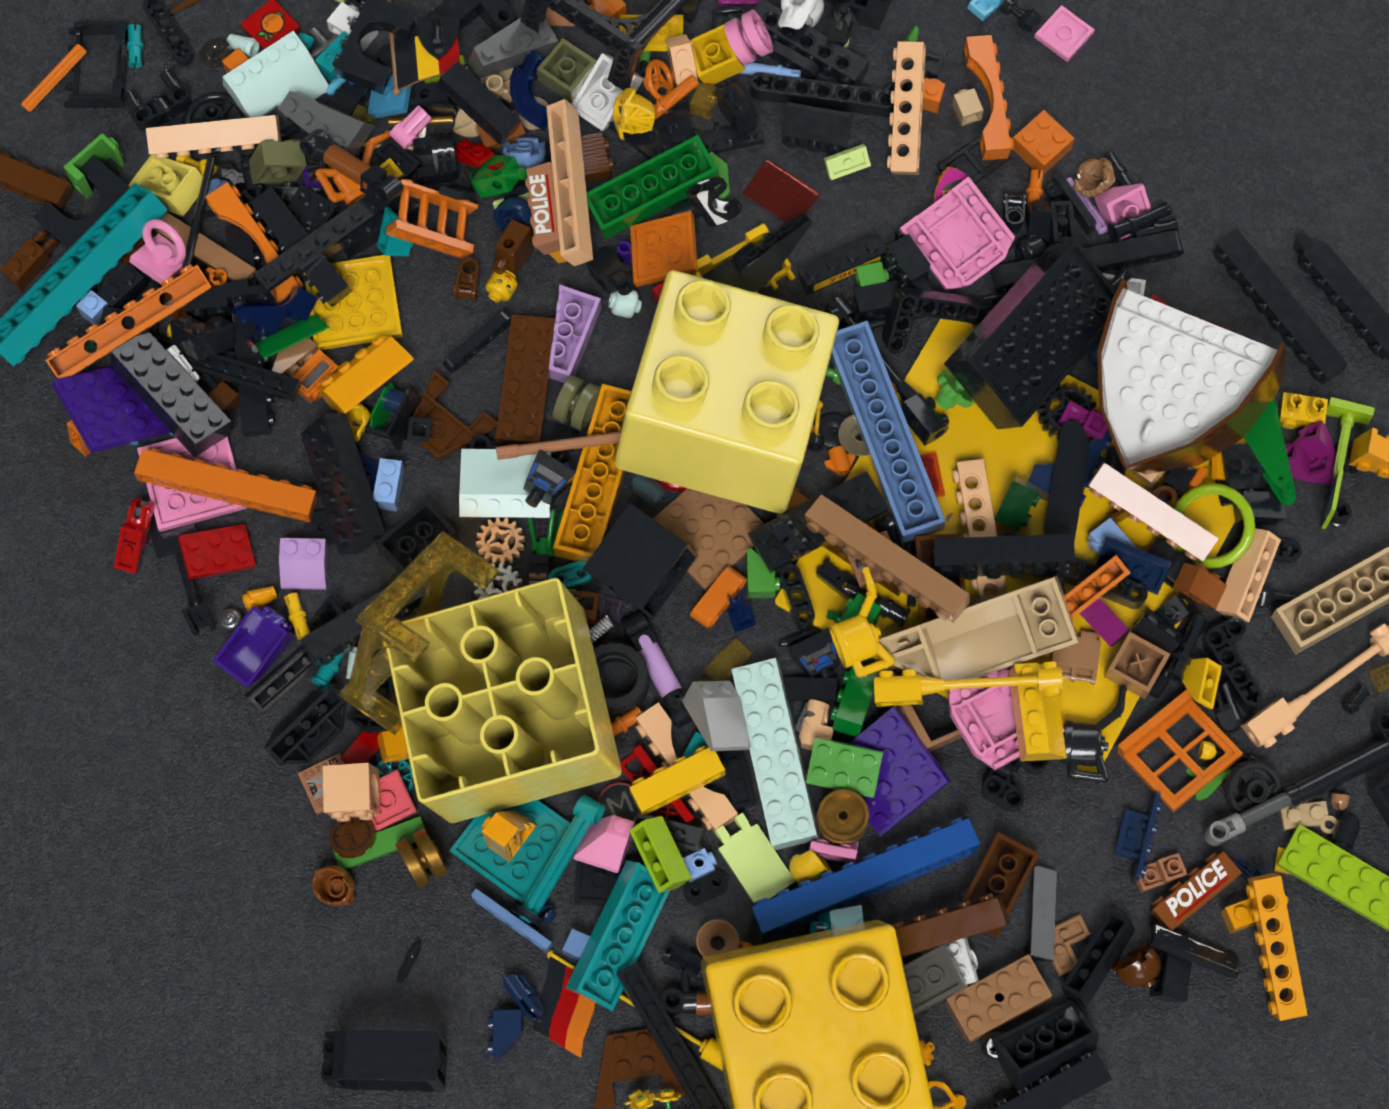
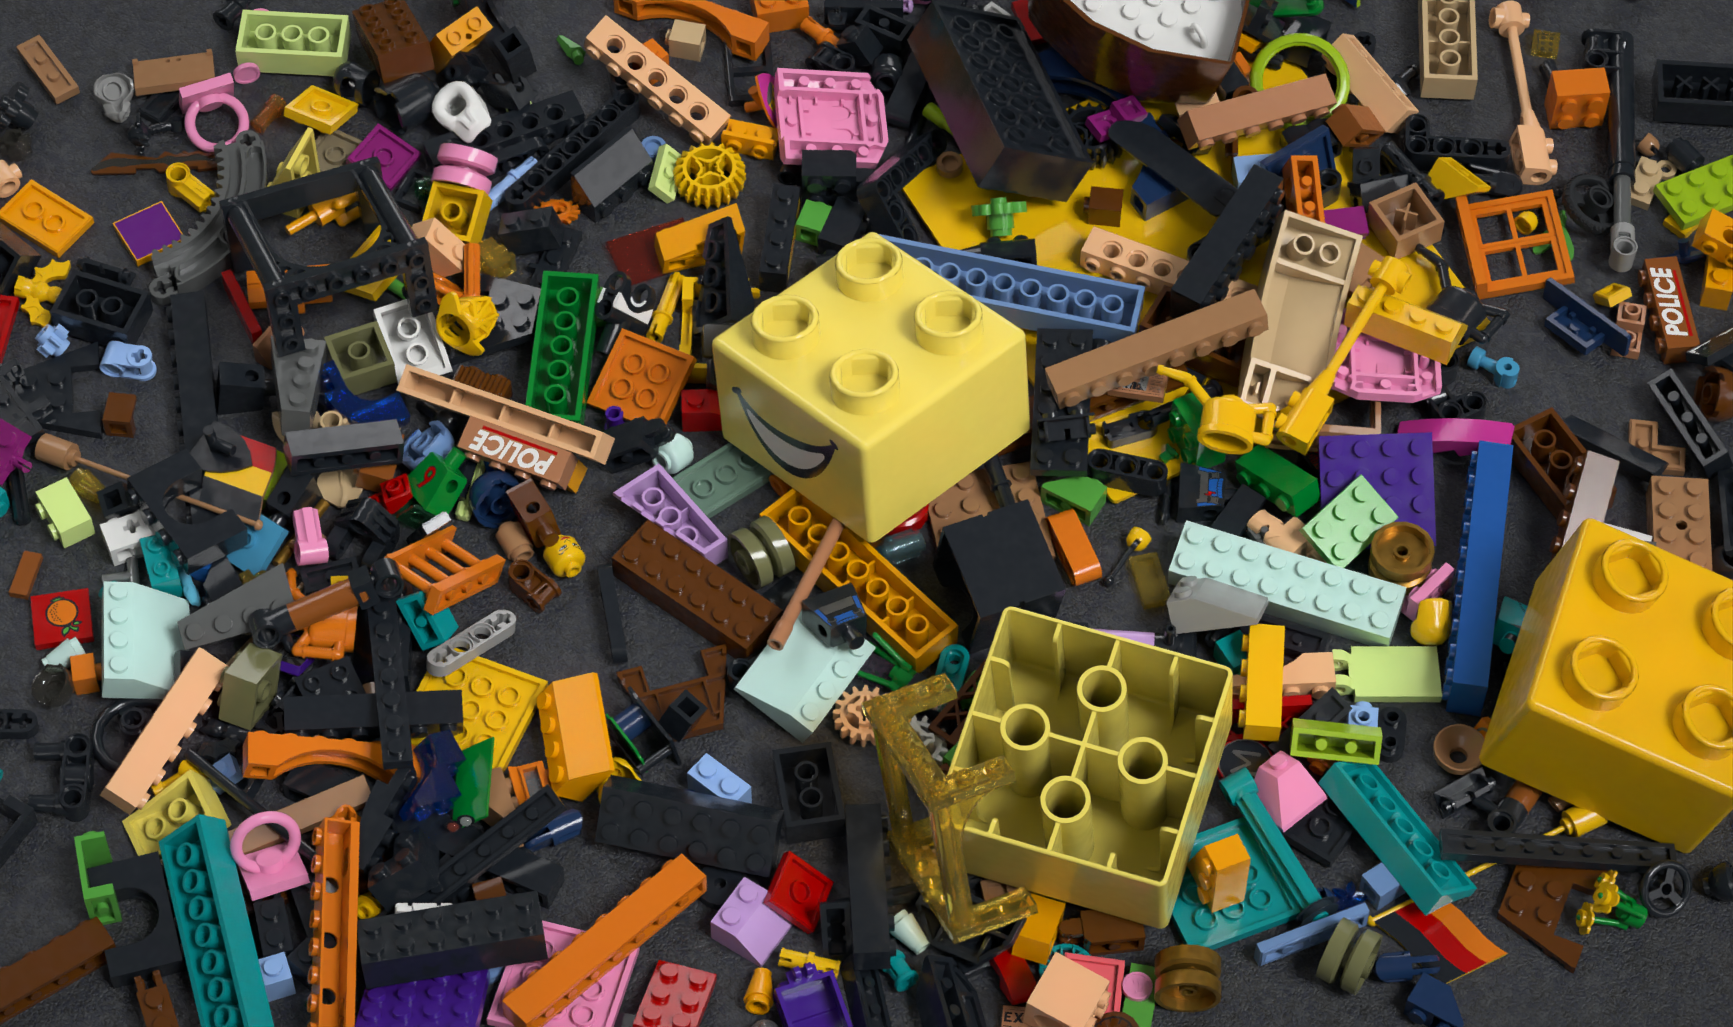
camera: 60 degrees left, 15 degrees down
(301, 408) = (561, 829): none -> dark blue arm
(340, 577) = (797, 892): none -> red tile
(399, 267) = (454, 660): none -> light grey beam
(403, 829) = (1137, 986): none -> bright pink piece
(488, 252) = (514, 541): none -> medium nougat brick
(502, 954) = (1355, 958): none -> olive wheel
(558, 930) = (1349, 897): none -> clear blue plant
(618, 341) = (722, 479): none -> sand green tile
(729, 522) = (999, 482): none -> black axle
(739, 228) = (663, 315): none -> yellow axle
(741, 613) = (1107, 534): clear blue plate -> none
(751, 635) = (1136, 541): none -> hinge
(775, 120) = (568, 212): none -> orange gear
(789, 204) = (683, 244): none -> light orange wedge
(866, 138) = (652, 145): none -> medium blue tile
(883, 190) = (710, 183): none -> yellow gear
(914, 194) = (751, 139): none -> light orange bracket
(975, 799) = (1459, 433): none -> dark pink slope
(1011, 456) = (1104, 206): none -> reddish brown brick
(1017, 504) = (1163, 223): dark green brick -> none
(1061, 803) = (1504, 370): none -> dark azure leg
(1181, 845) = (1612, 295): none -> yellow tile
(1338, 727) = (1577, 98): none -> orange brick

